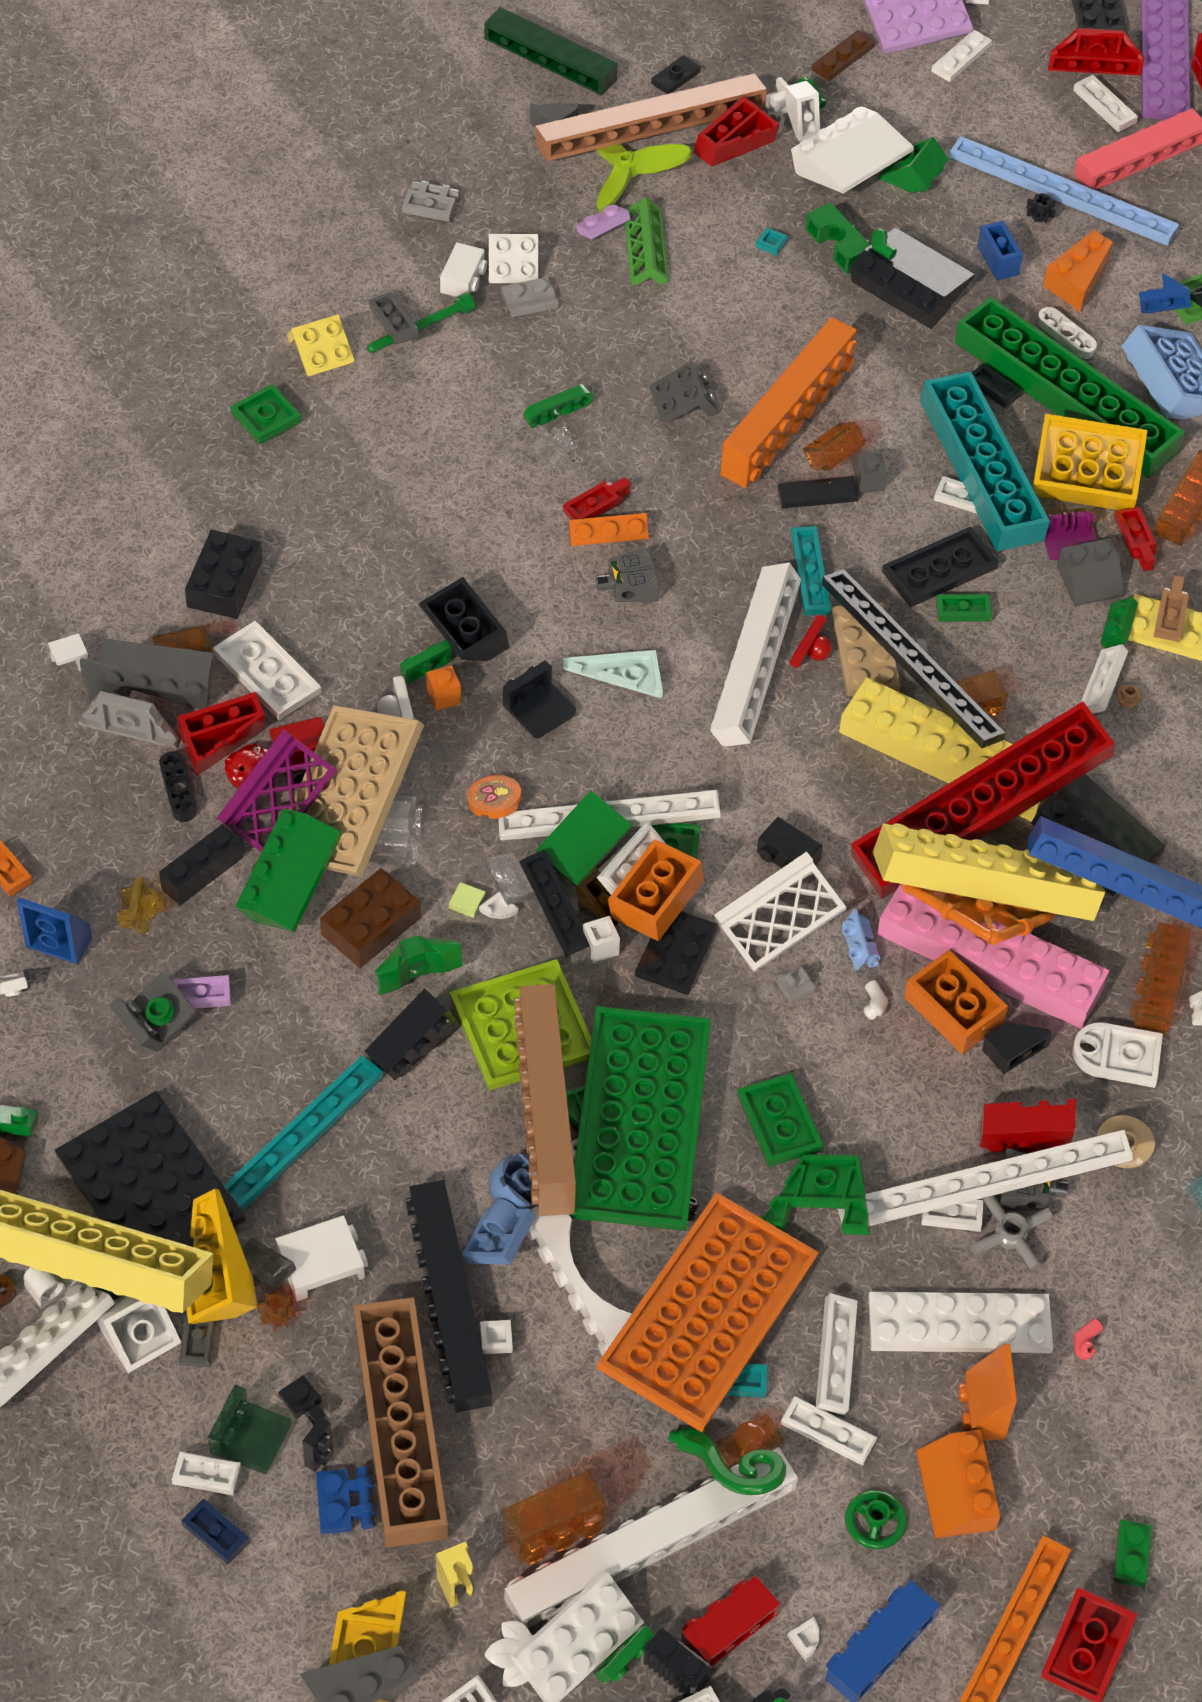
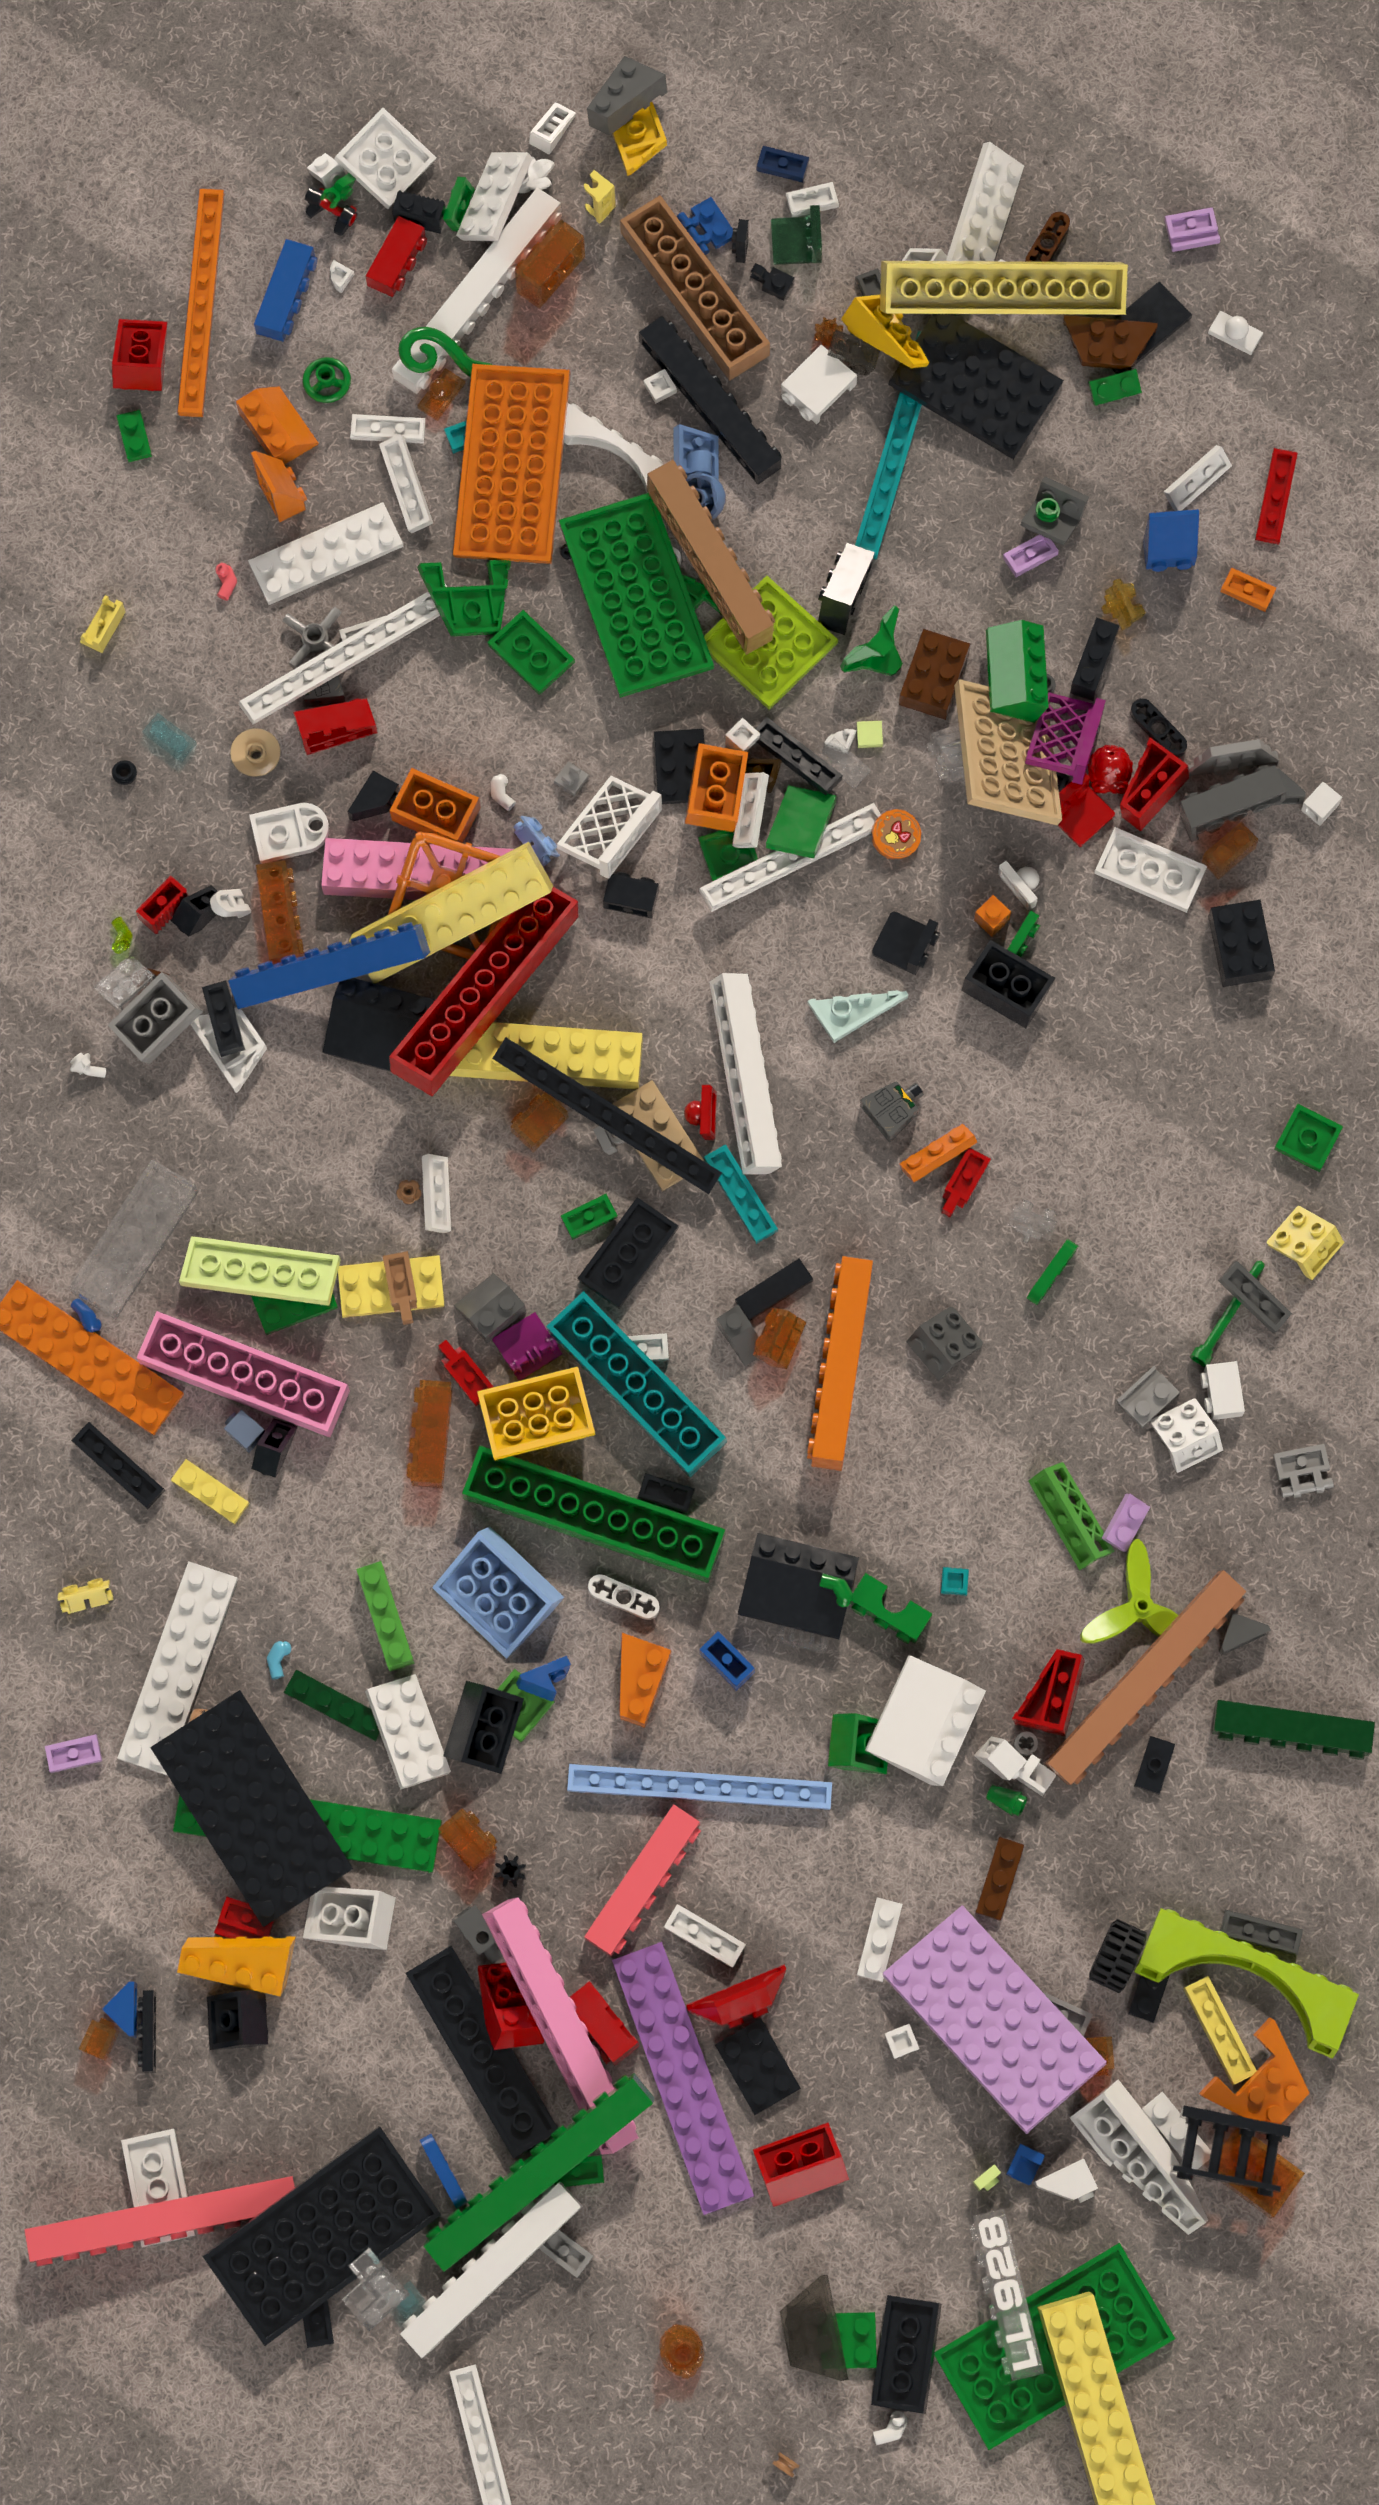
camera: 160 degrees right, 20 degrees up
(1041, 208) = (711, 1740): black gear -> none
(1119, 622) = (445, 1262): green plate -> none

